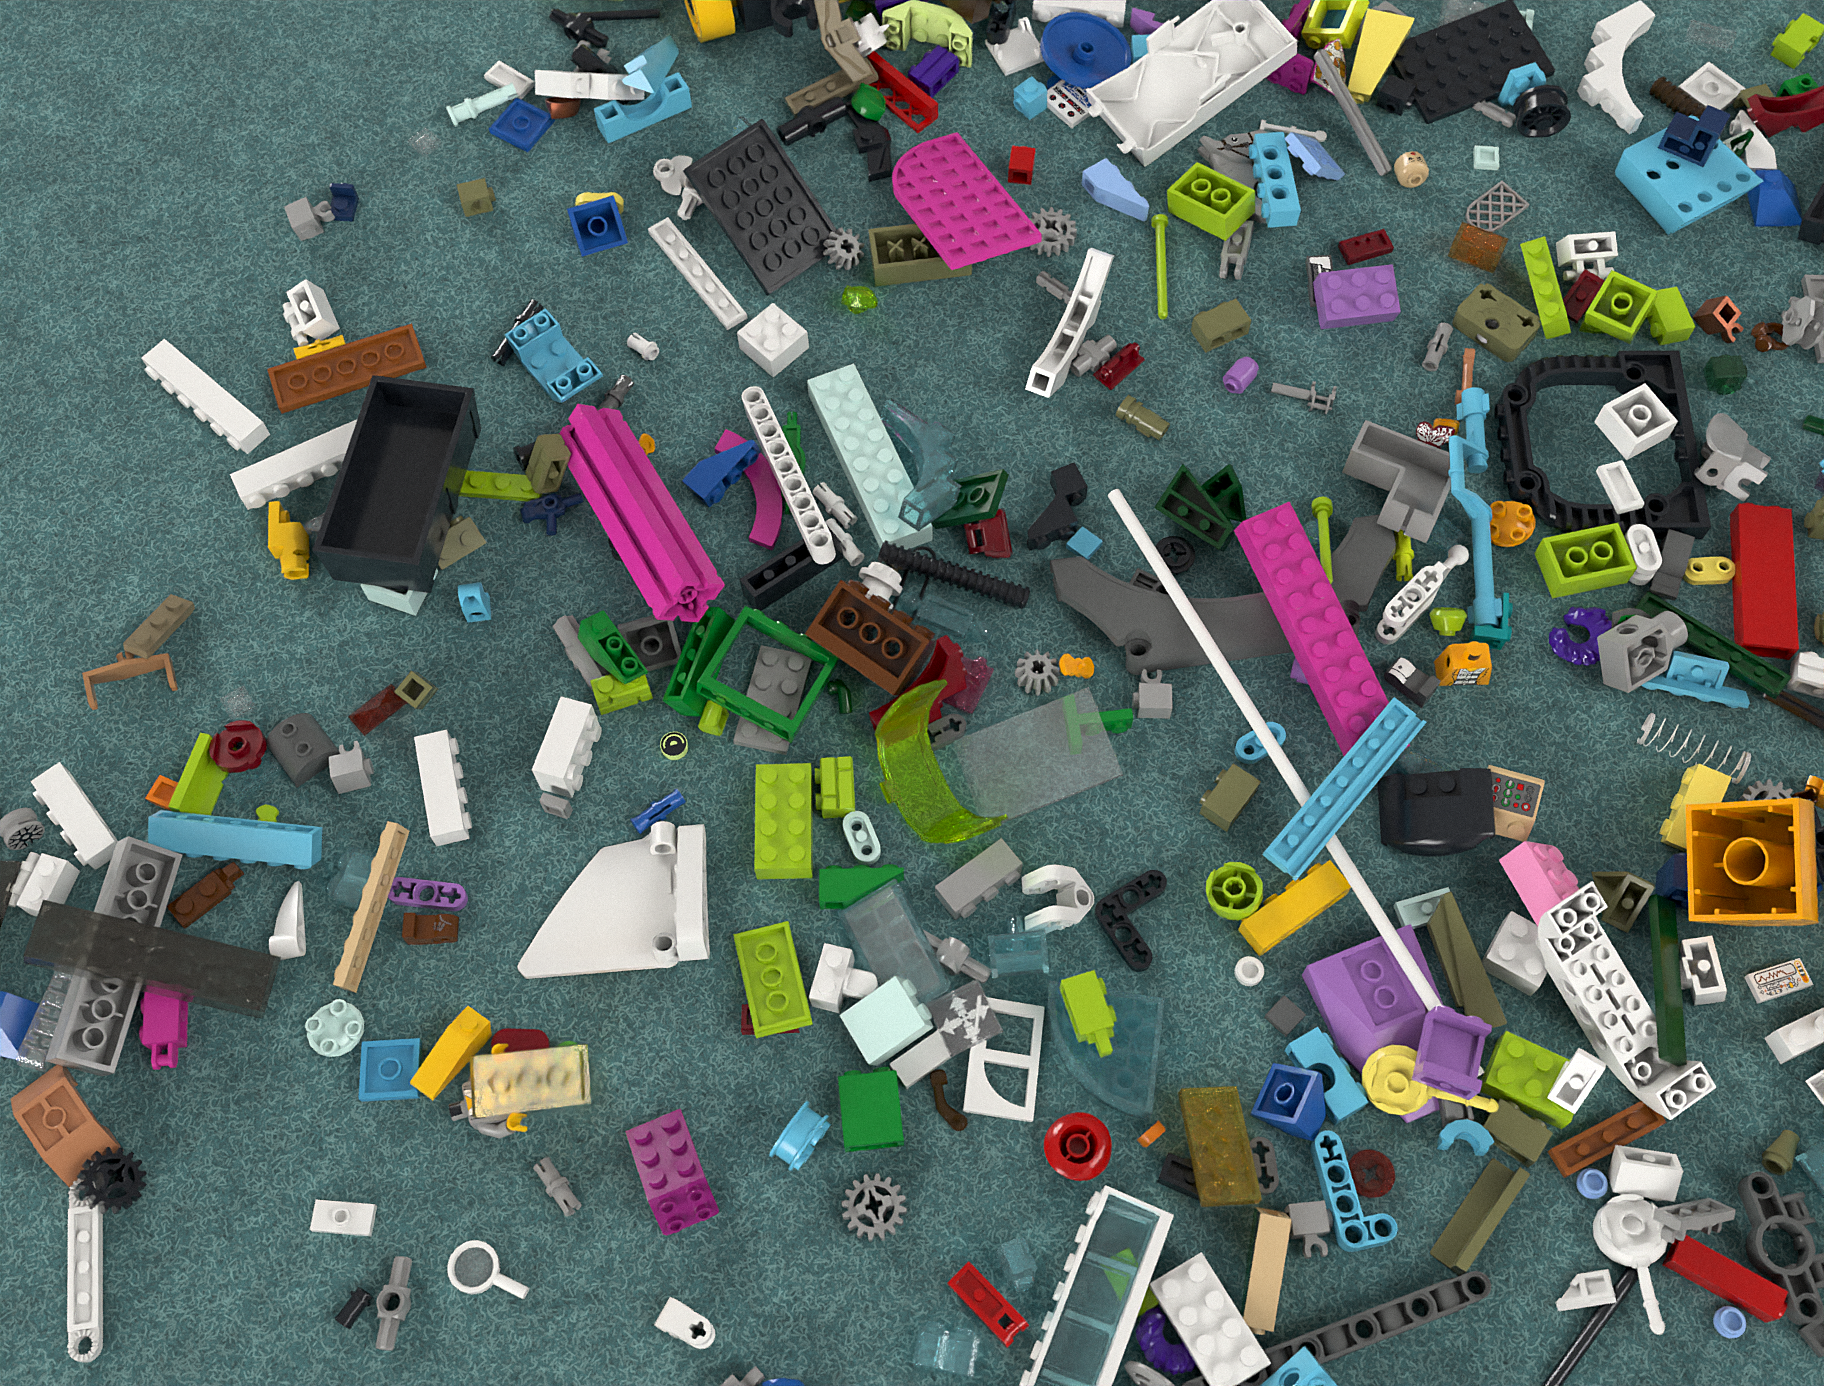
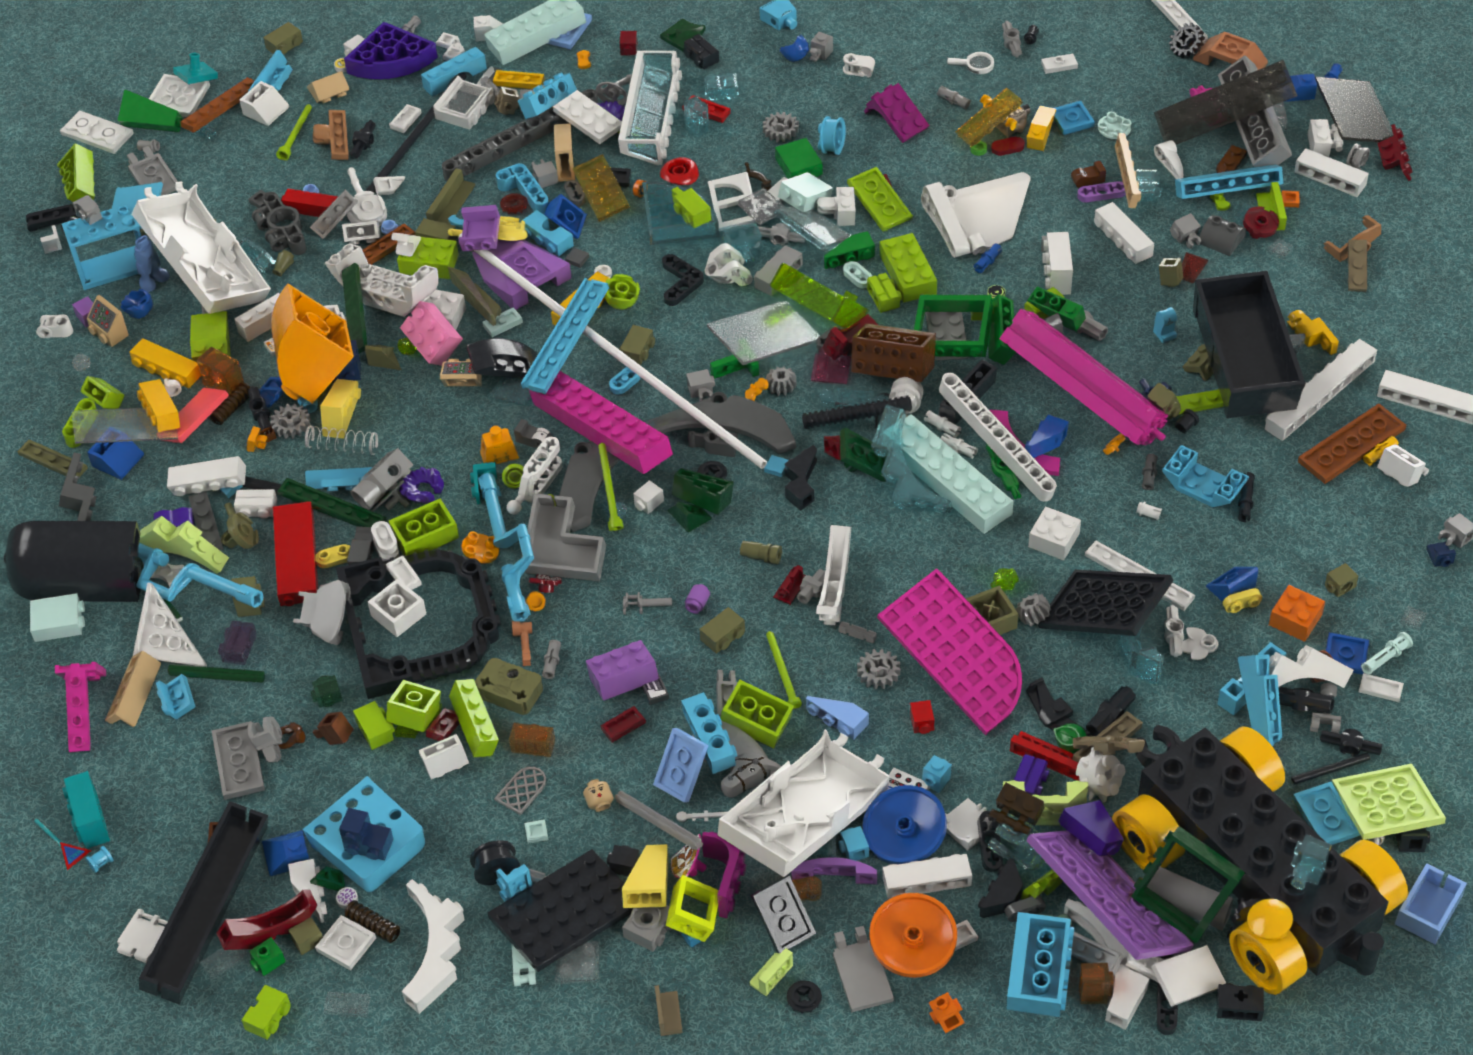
camera: 165 degrees right, 15 degrees down
(549, 170) = (1296, 613): none -> orange brick

